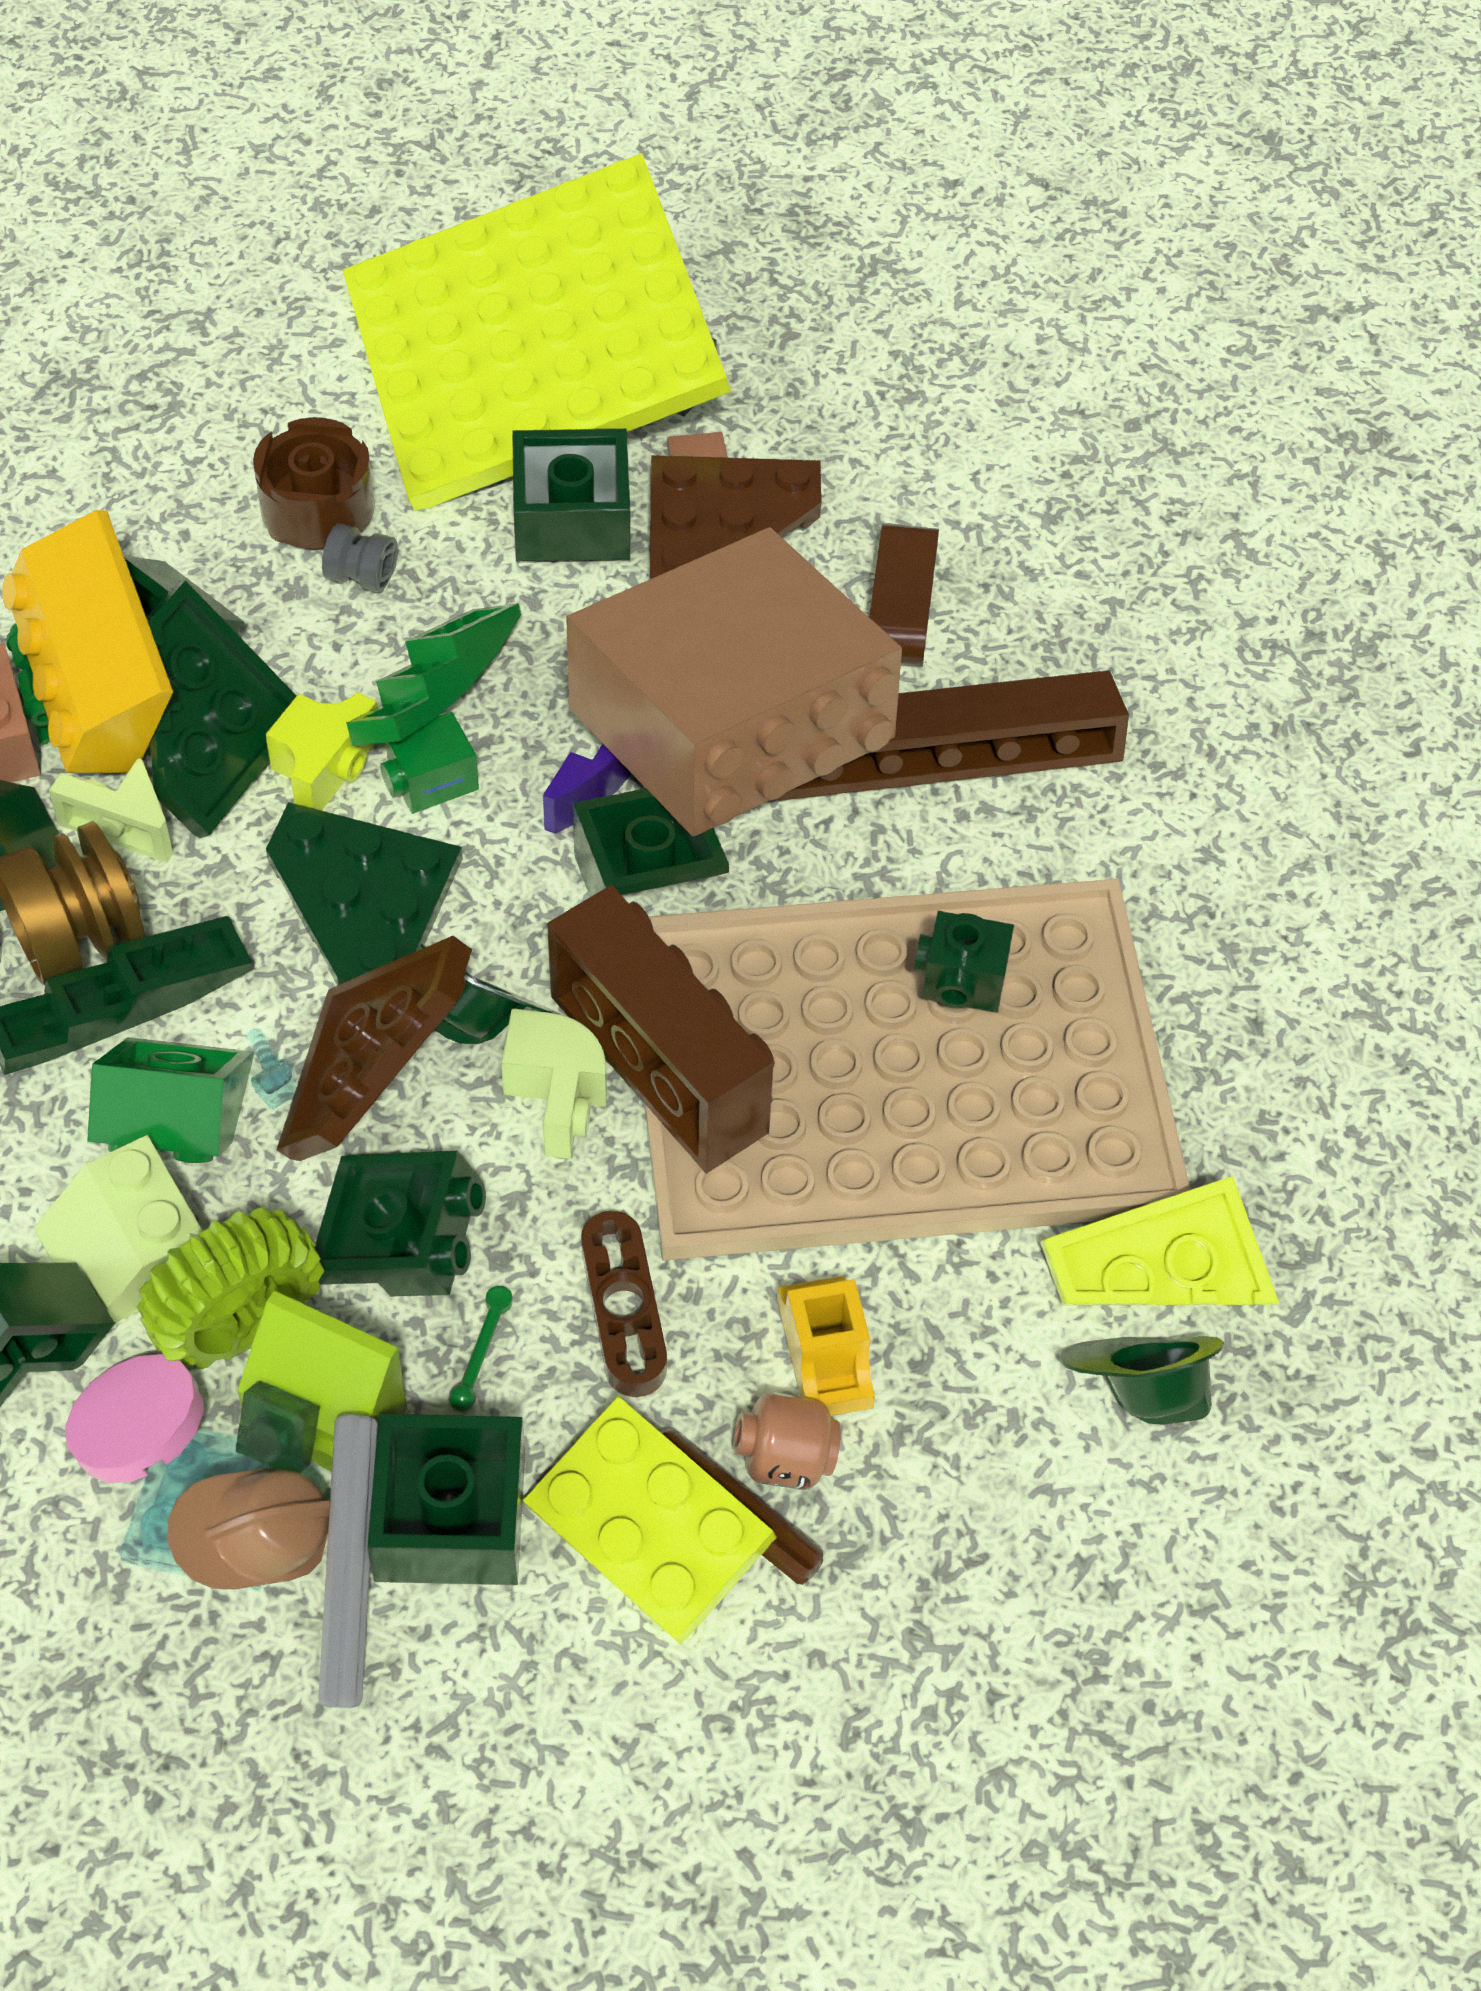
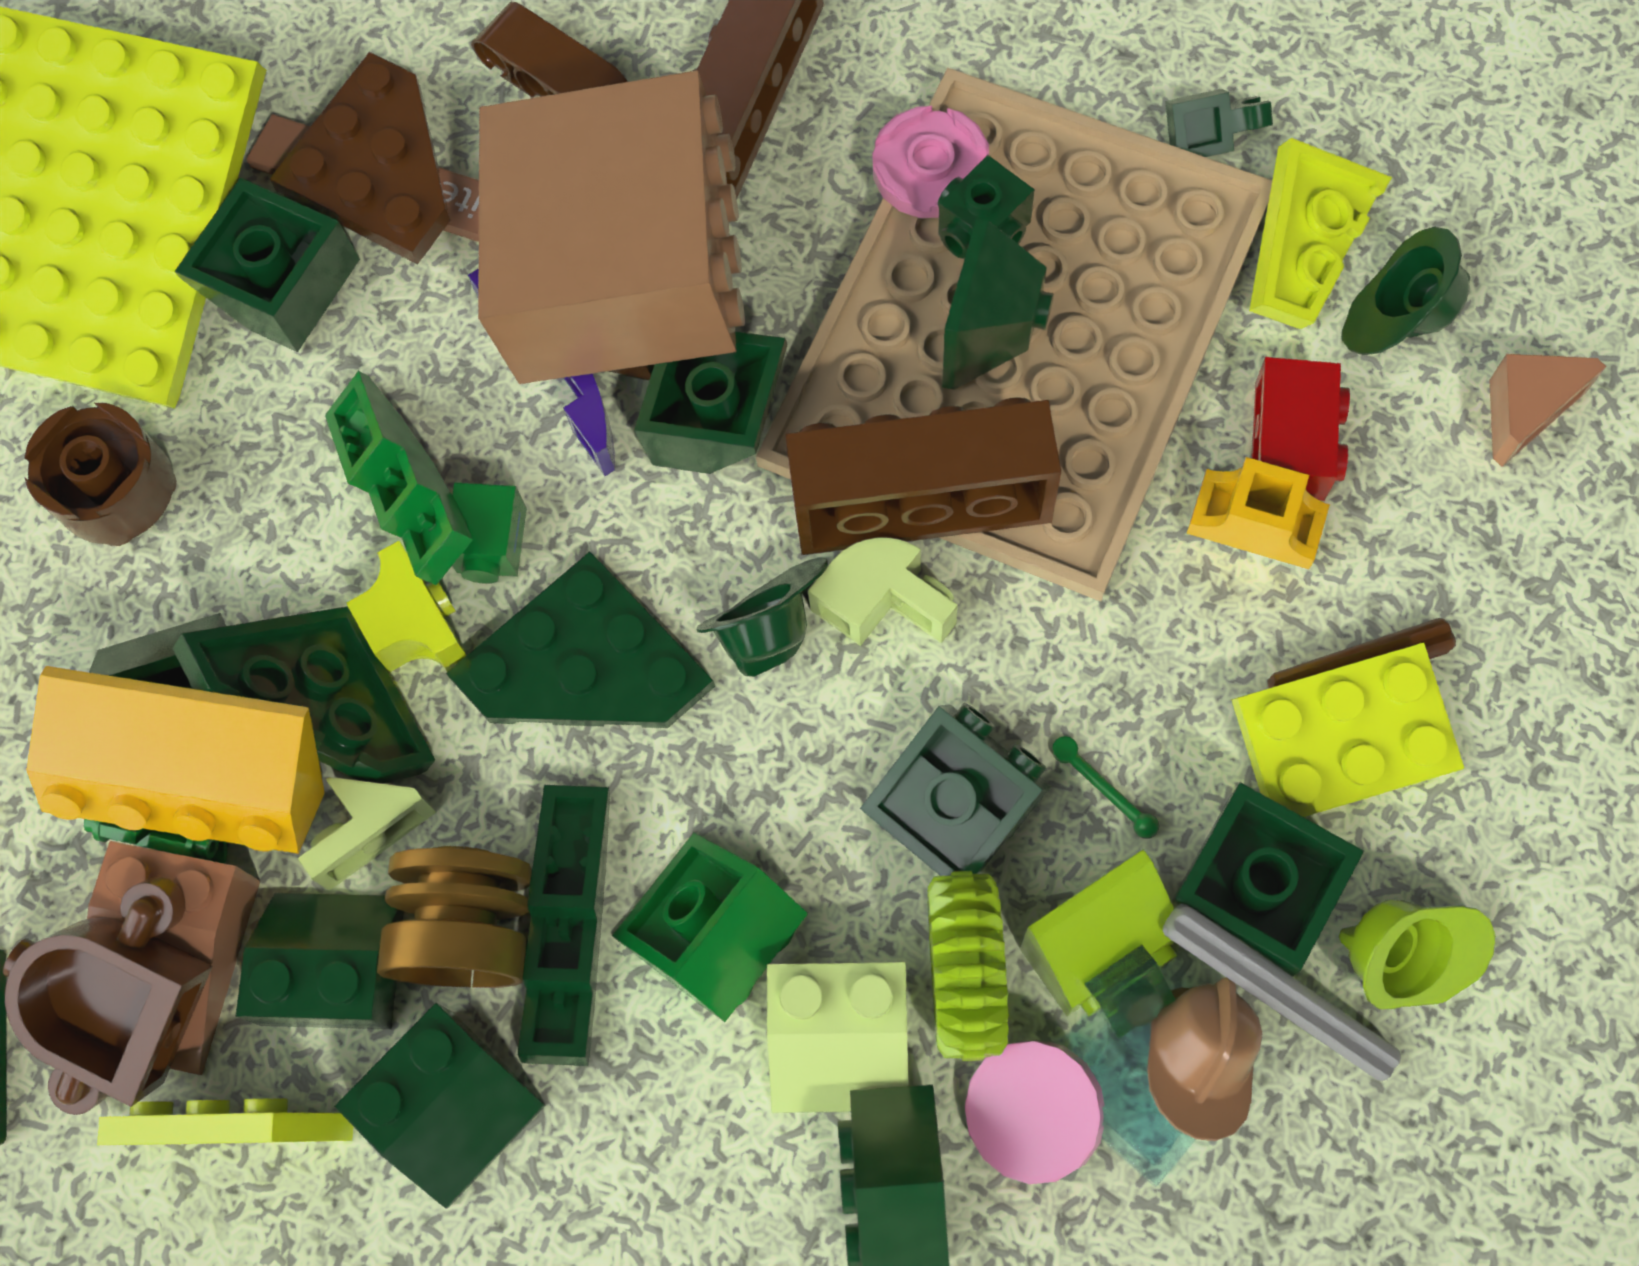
camera: 50 degrees left, 15 degrees up
(275, 1081) = (742, 826): clear light blue hand -> none
(359, 557) = (208, 478): dark grey wheel -> none
(365, 1041) = (772, 726): reddish brown plate -> none
(455, 1671) = (1418, 952): none -> lime piece
(633, 1278) = (1150, 637): reddish brown beam -> none
(788, 1441) = (1334, 590): nougat head -> none
(865, 1002) = (993, 306): none -> dark green slope
(940, 1335) = (1299, 420): none -> red brick
(1012, 891) = (922, 155): none -> bright pink tile
(1113, 1532) = (1532, 394): none -> nougat slope
(1217, 1116) = (1208, 120): none -> dark green plate

